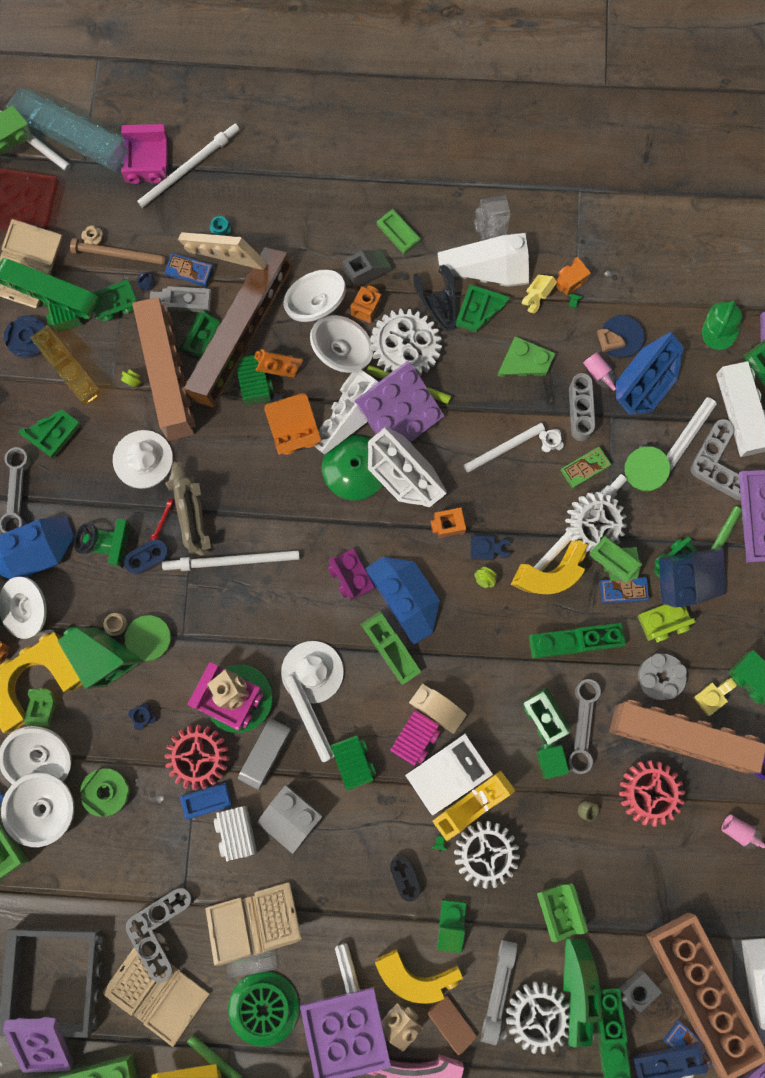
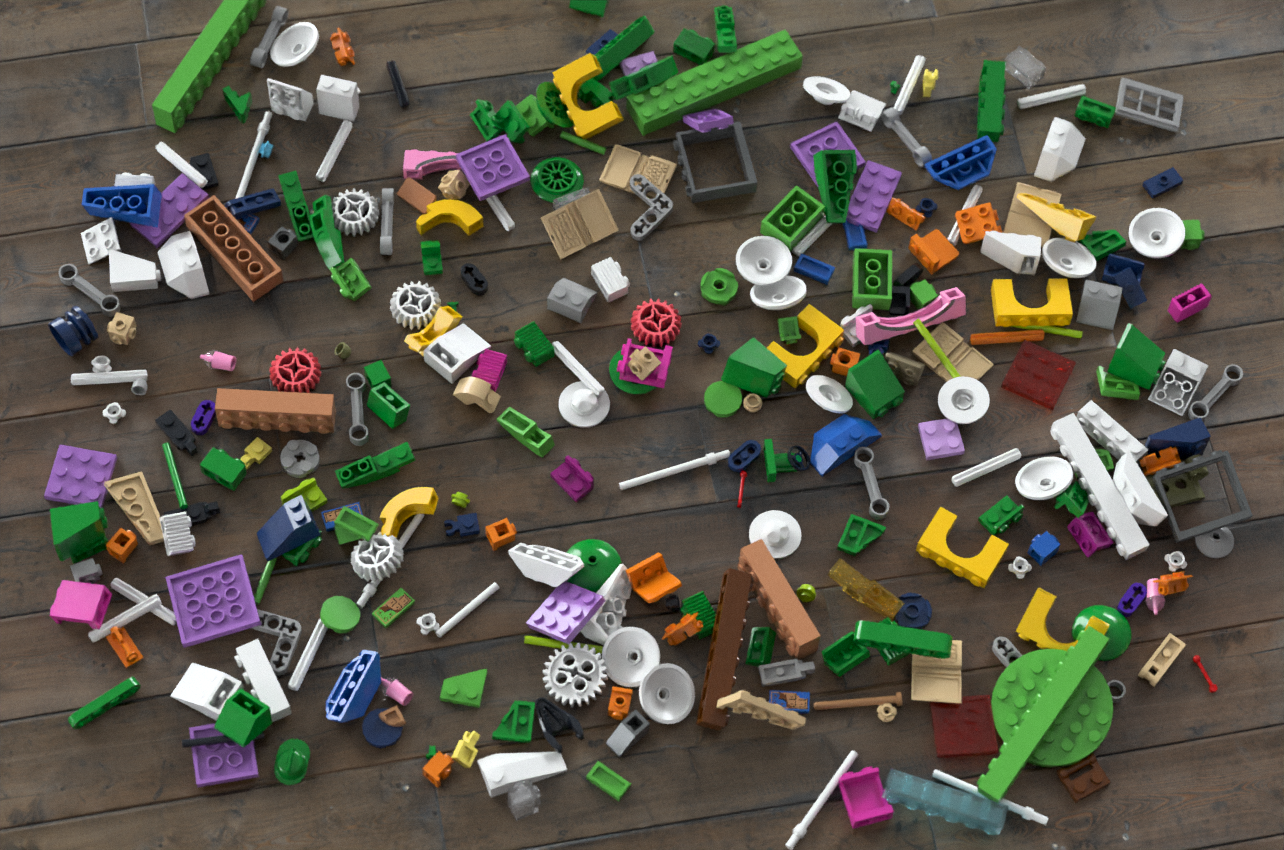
camera: 160 degrees right, 15 degrees down
(148, 283) = (828, 685): dark blue hinge -> none
(188, 509) = (721, 496): dark tan animal -> none
(206, 801) = (636, 297): blue tile -> none
(220, 221) = (773, 742): teal plate -> none
(264, 754) = (604, 336): light grey beam -> none
(406, 595) = (525, 472): blue wedge -> none
(584, 397) = (407, 645): light grey beam -> none

